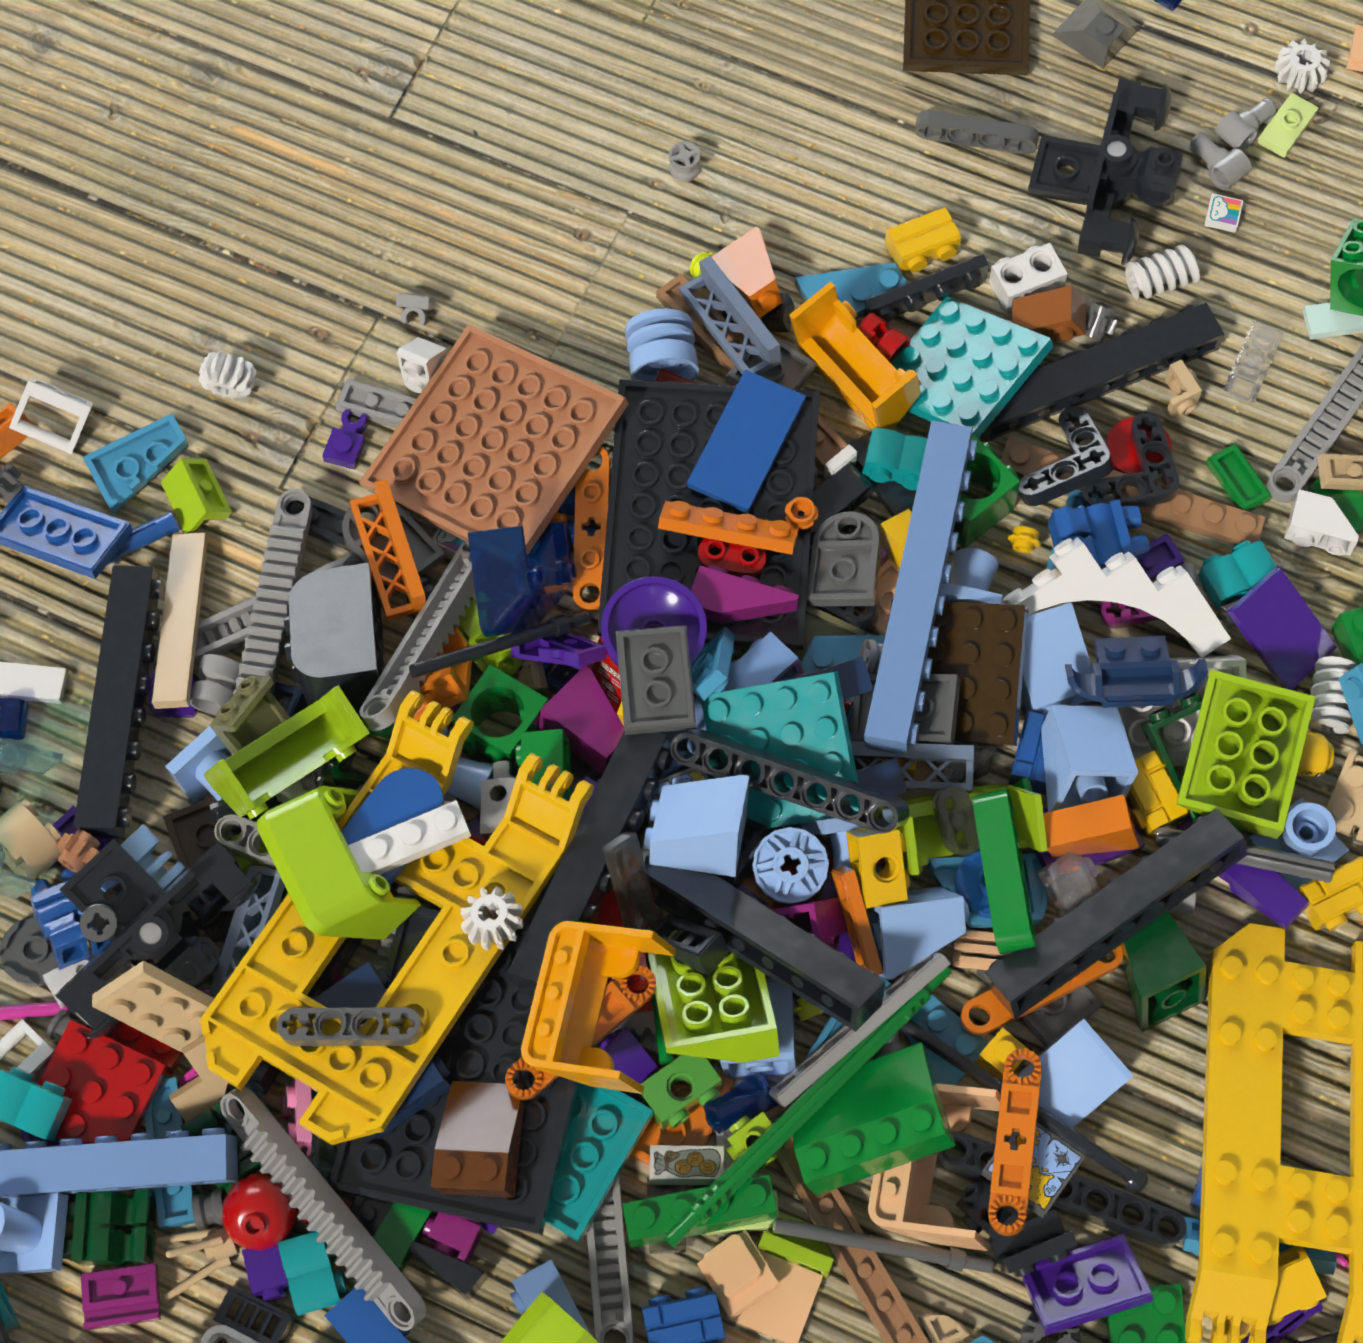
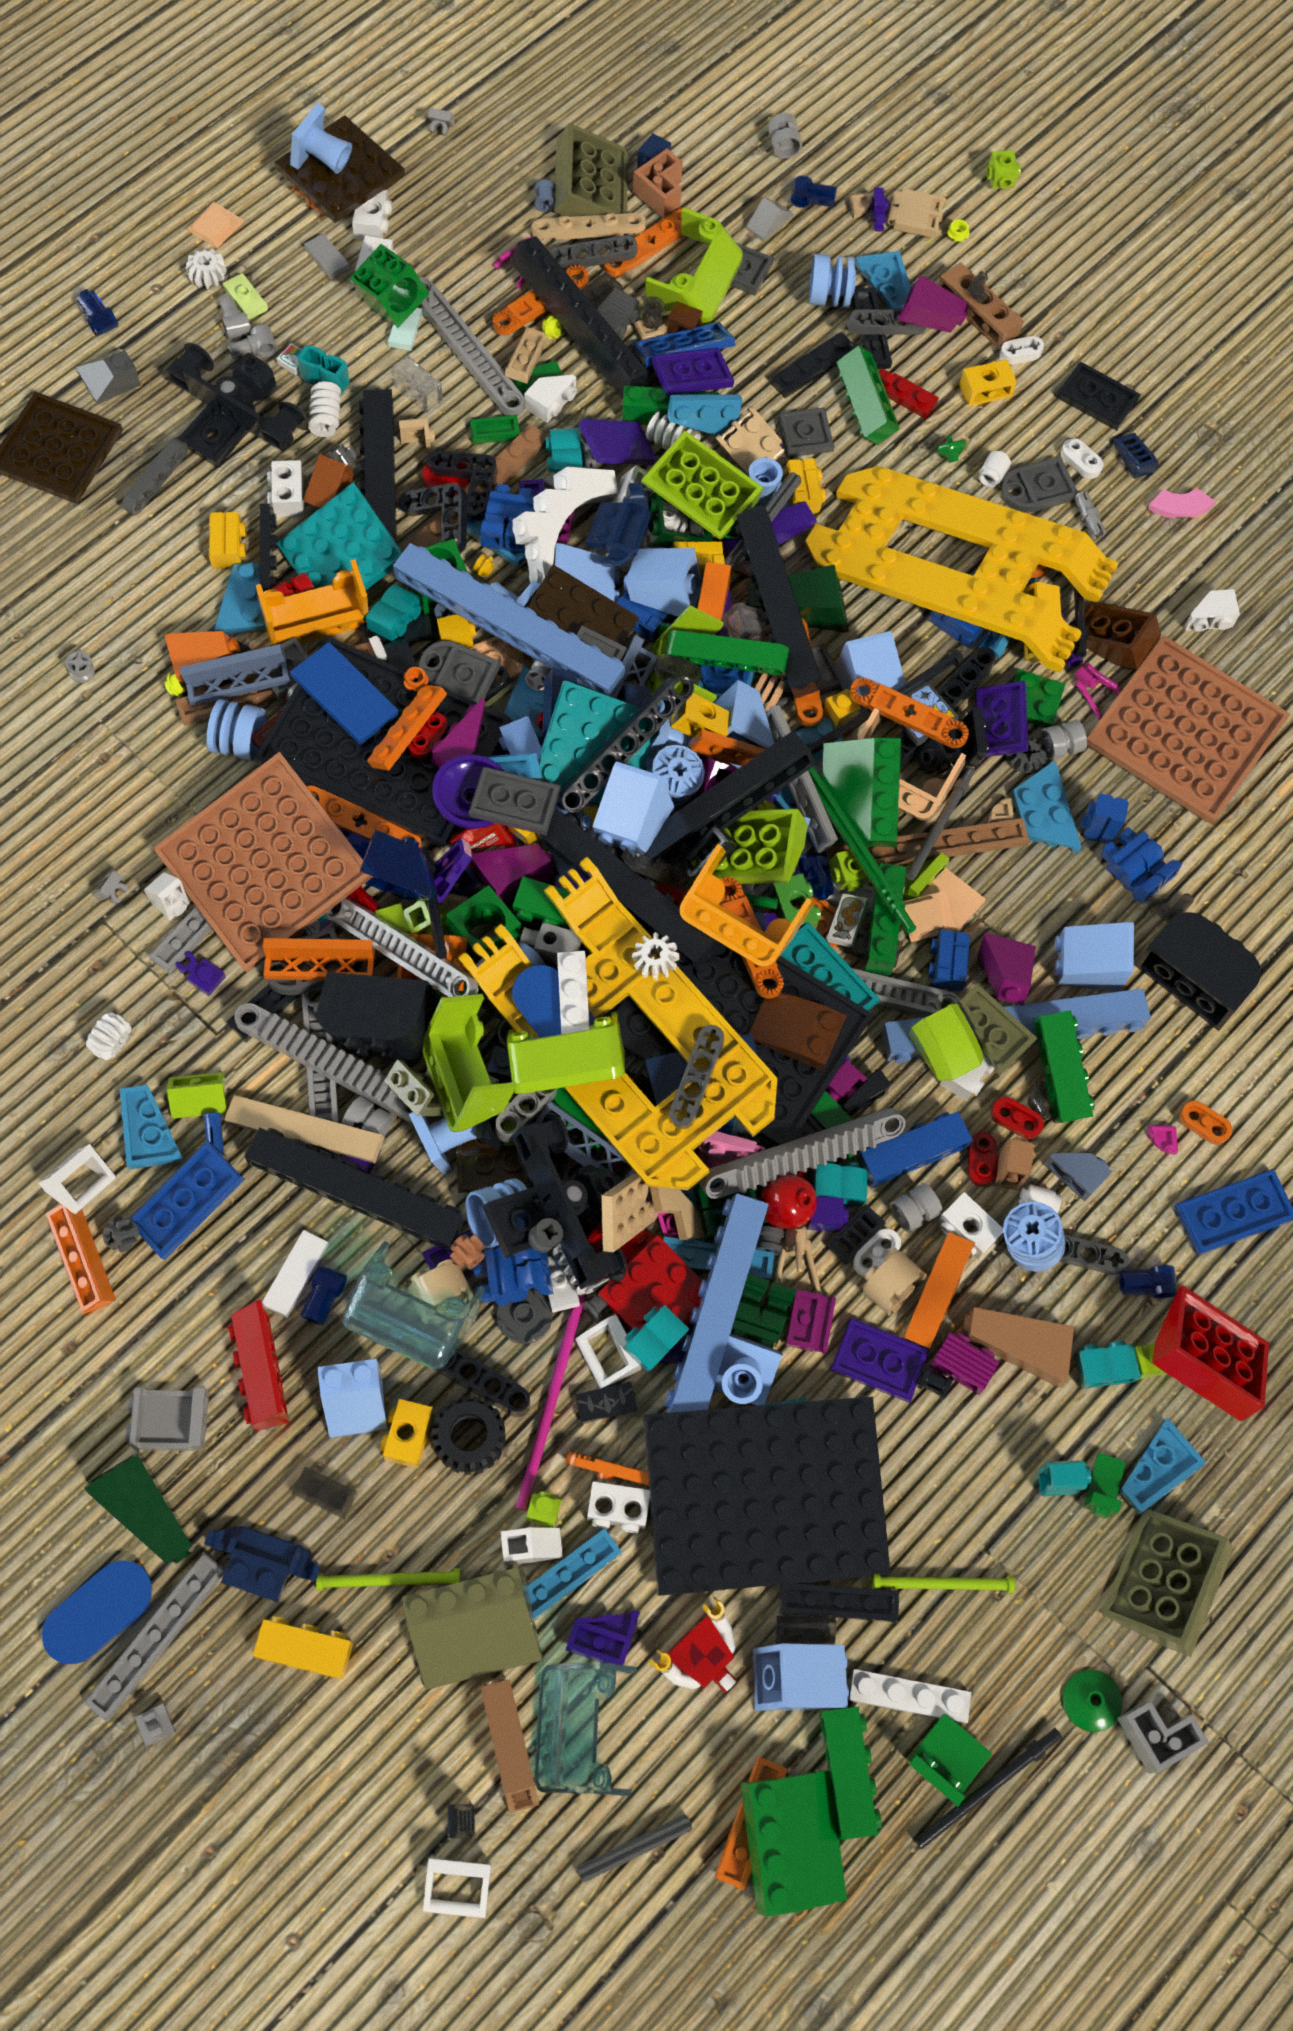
camera: 80 degrees left, 0 degrees up
(1216, 248) = (319, 367): none -> teal brick

